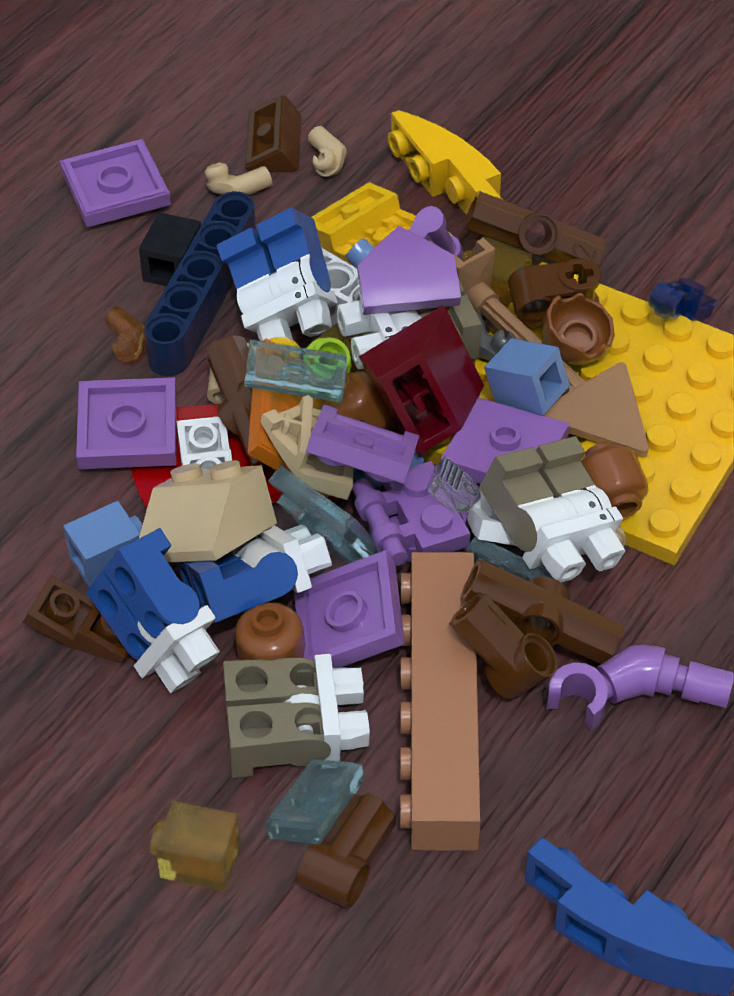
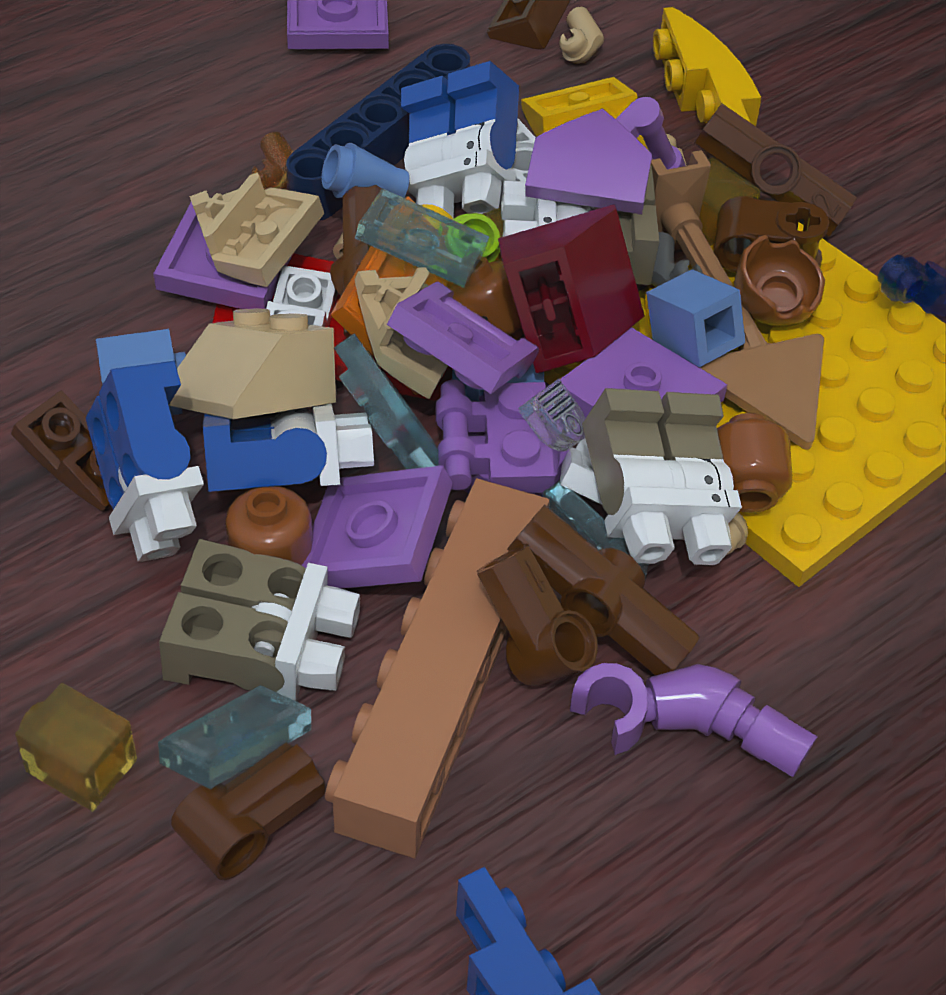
camera: 15 degrees right, 0 degrees up
(144, 397) = (255, 228): none -> tan slope
(165, 246) = (354, 80): black brick -> none
(205, 324) = (354, 166): none -> medium blue cone
(251, 182) = (478, 46): tan arm -> none

